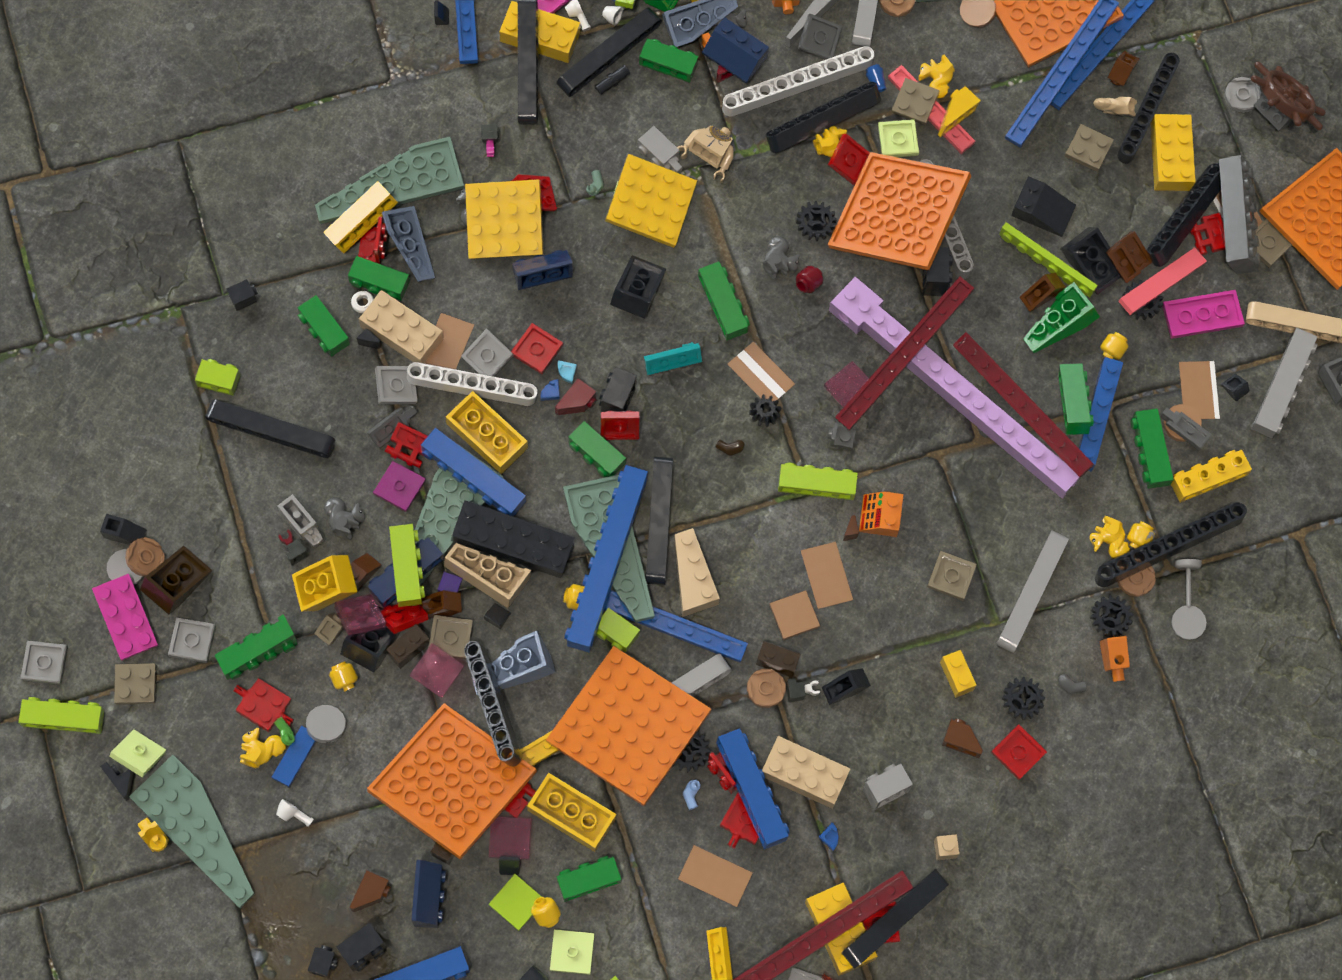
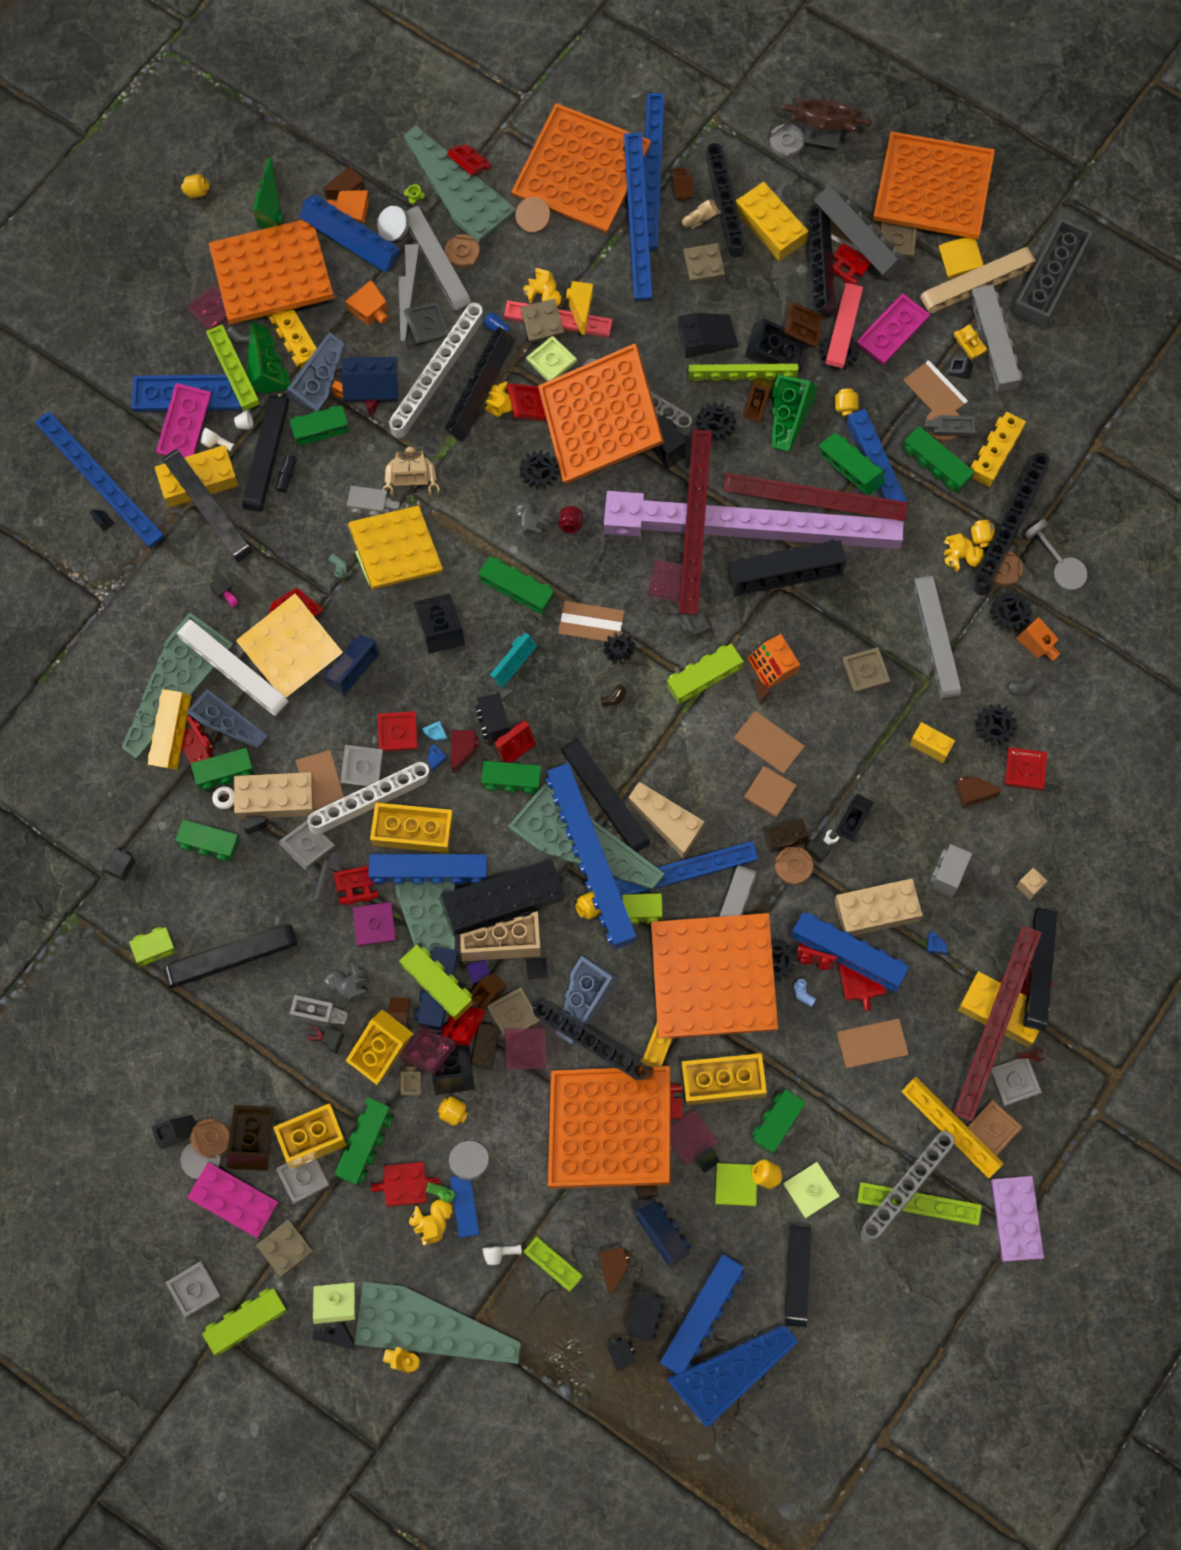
camera: 30 degrees left, 0 degrees up
(219, 612) = (310, 1136): none -> yellow brick
(326, 853) = (553, 1264): none -> lime tile
(447, 204) = (232, 667): none -> white beam
(952, 445) = (787, 568): none -> black brick
(986, 291) = (717, 419): none -> black gear
(1259, 371) = (970, 342): none -> yellow hips
(1311, 294) = (960, 256): none -> yellow slope

